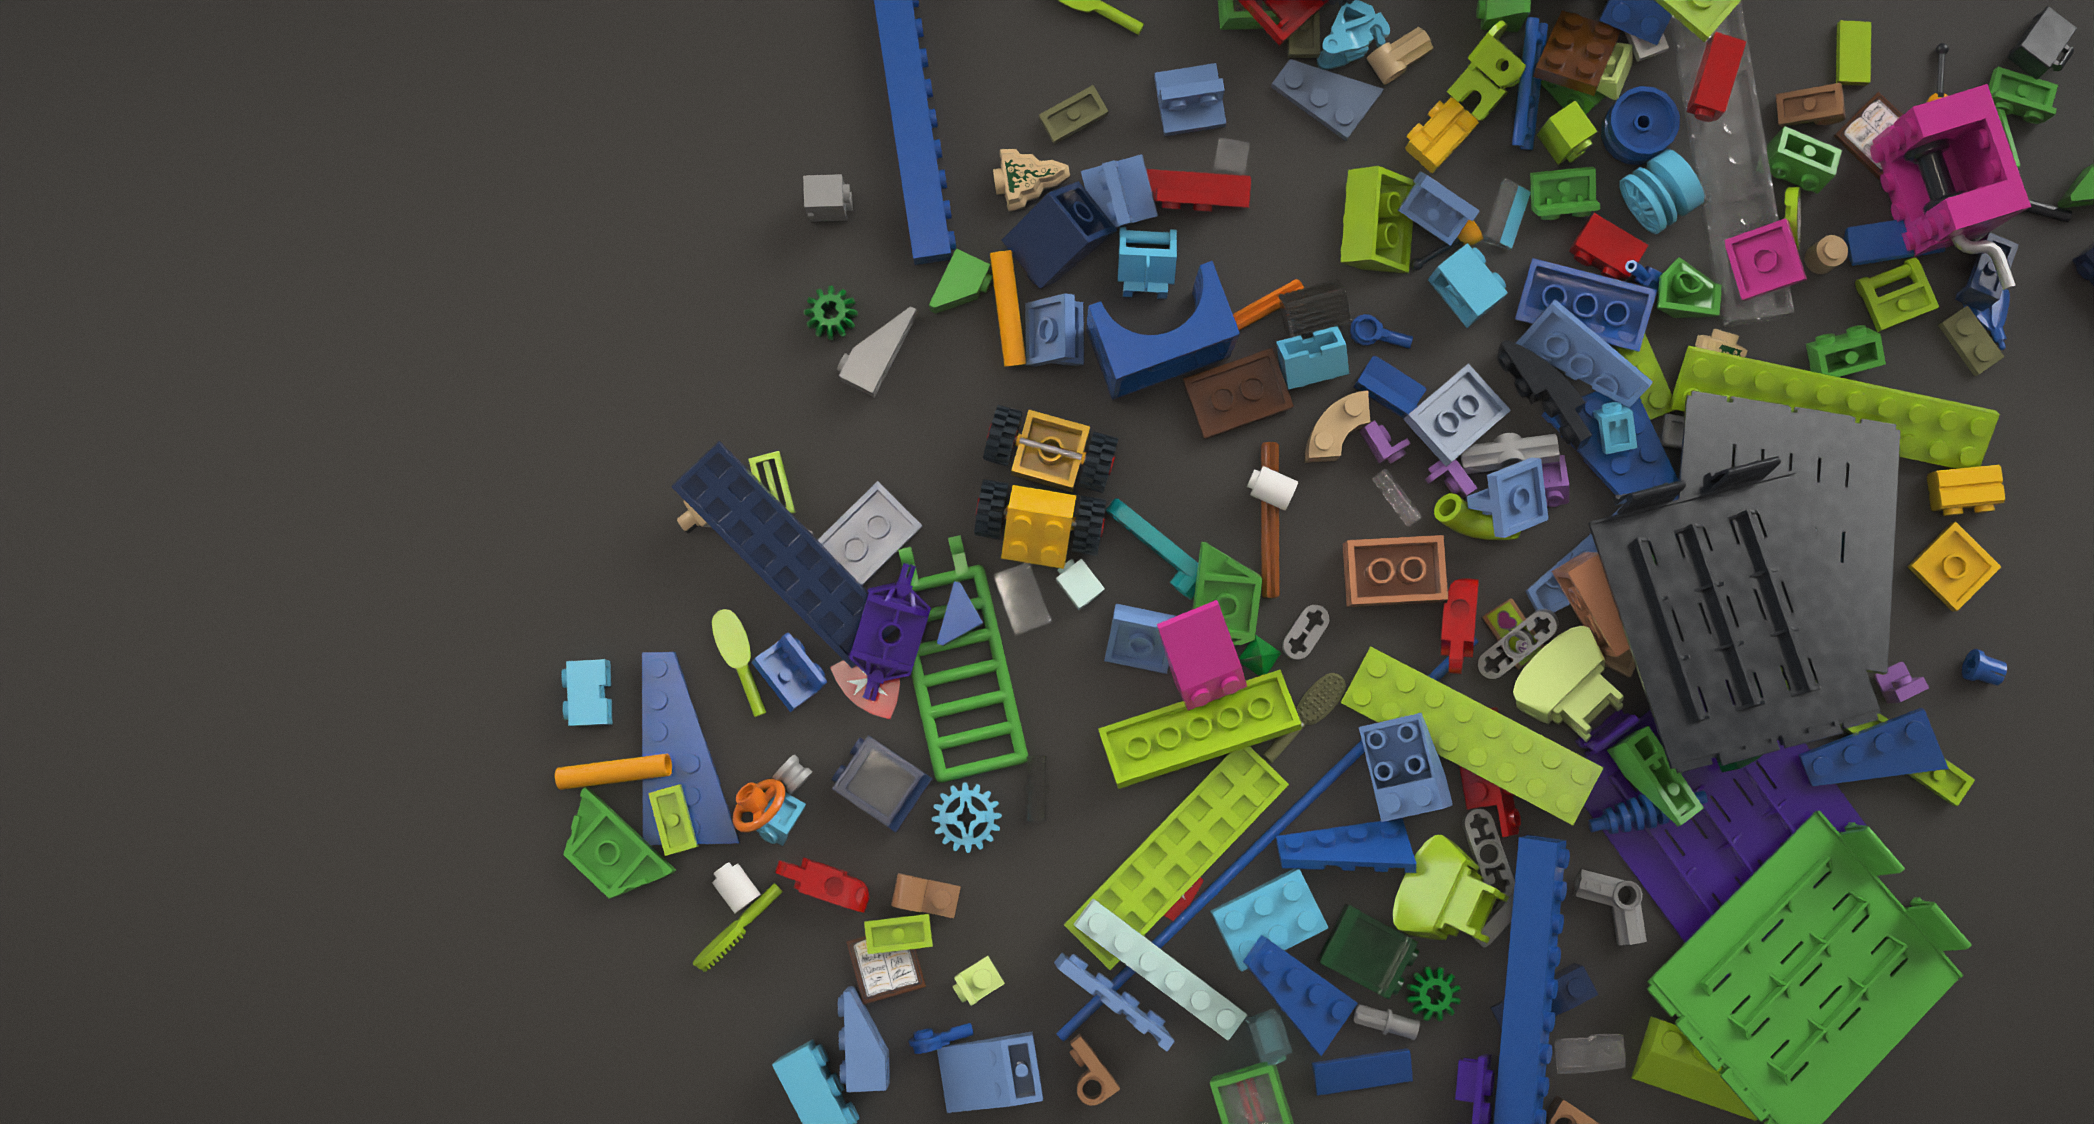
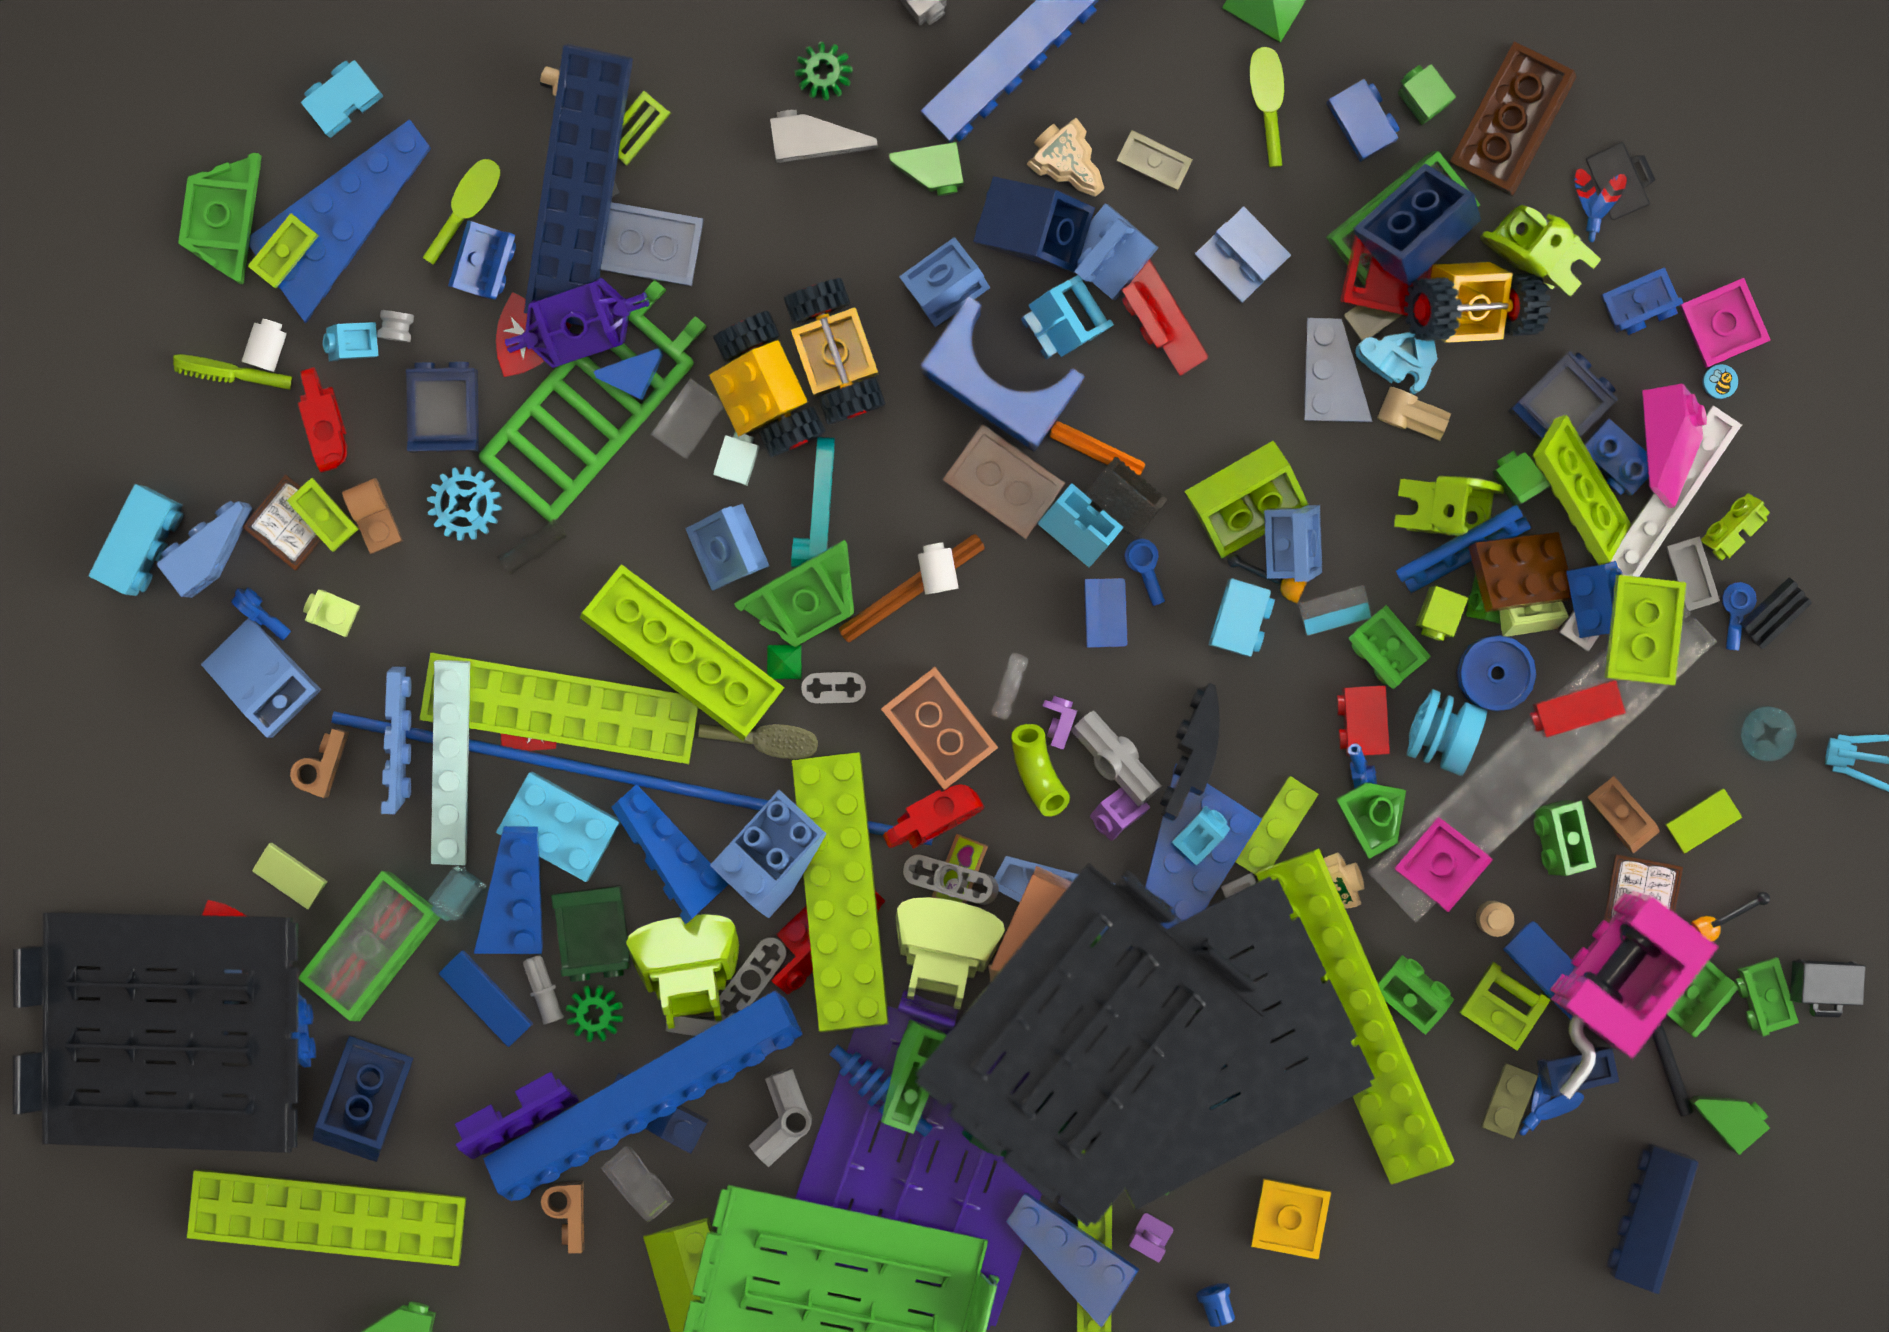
camera: 60 degrees right, 5 degrees up
(613, 771) = (289, 169): light orange piece -> none
(754, 800) = (349, 310): orange piece -> none
(1008, 308) = (936, 225): light orange piece -> none
(1201, 655) = (744, 609): dark pink slope -> none
(1231, 156) = (1216, 327): clear tile -> none
(1334, 425) = (1034, 587): tan brick -> none
(1378, 442) = (1048, 634): medium lavender bracket -> none
(1441, 134) = (1364, 500): yellow brick -> none
(1457, 415) = (1117, 687): plate -> none
(1513, 498) = (1074, 787): medium blue bracket -> none
(1583, 355) = (1249, 751): medium blue wing -> none
(1605, 305) = (1298, 734): blue slope -> none
(1793, 212) = (1506, 867): lime tile -> none
(1966, 488) = (1367, 1182): yellow brick -> none

